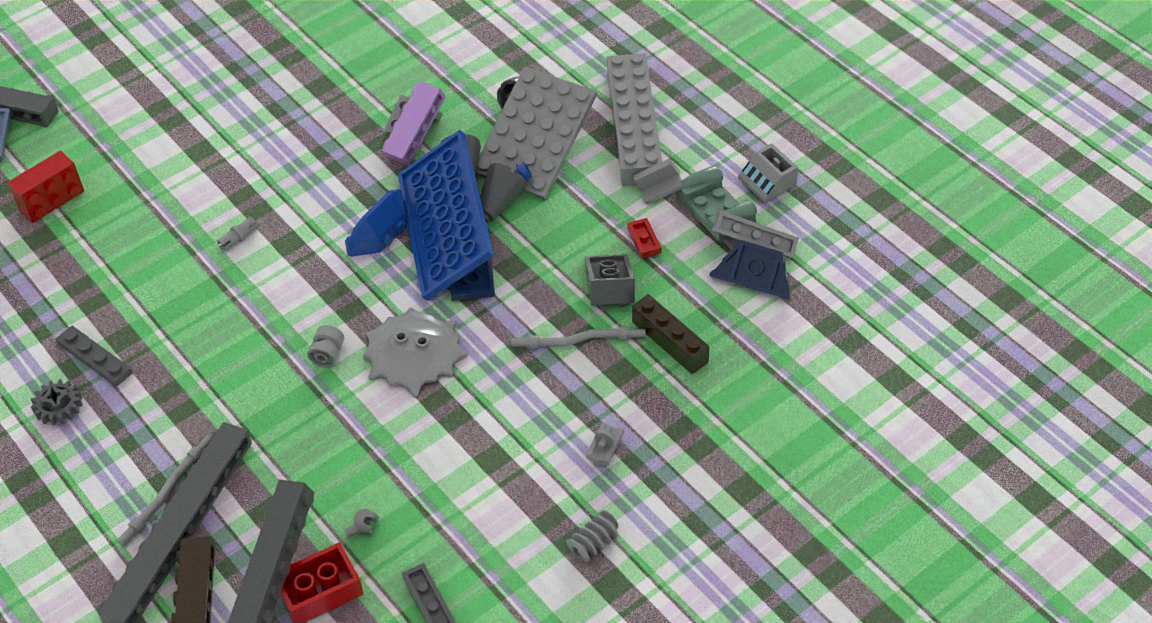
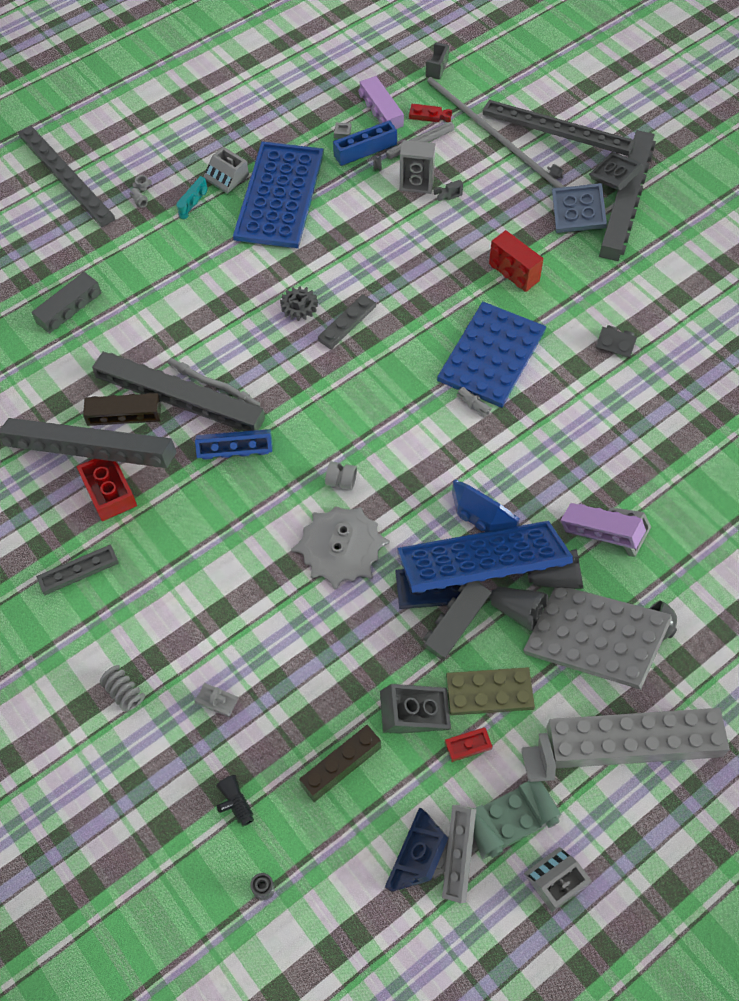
camera: 90 degrees right, 10 degrees up
(169, 219) = (492, 354): none -> blue plate
(176, 114) = (616, 341): none -> dark grey bracket
(268, 450) = (233, 443): none -> blue brick
(361, 522) = (164, 516): light grey piece -> none
(518, 242) = (456, 620): none -> dark grey brick
(524, 171) = (543, 625): blue plate -> none
(535, 342) = (342, 643): light grey bar -> none
(586, 224) = (490, 691): none -> olive plate
(716, 420) = (236, 801): none -> black piece
(799, 392) = (265, 889): none -> dark grey wheel

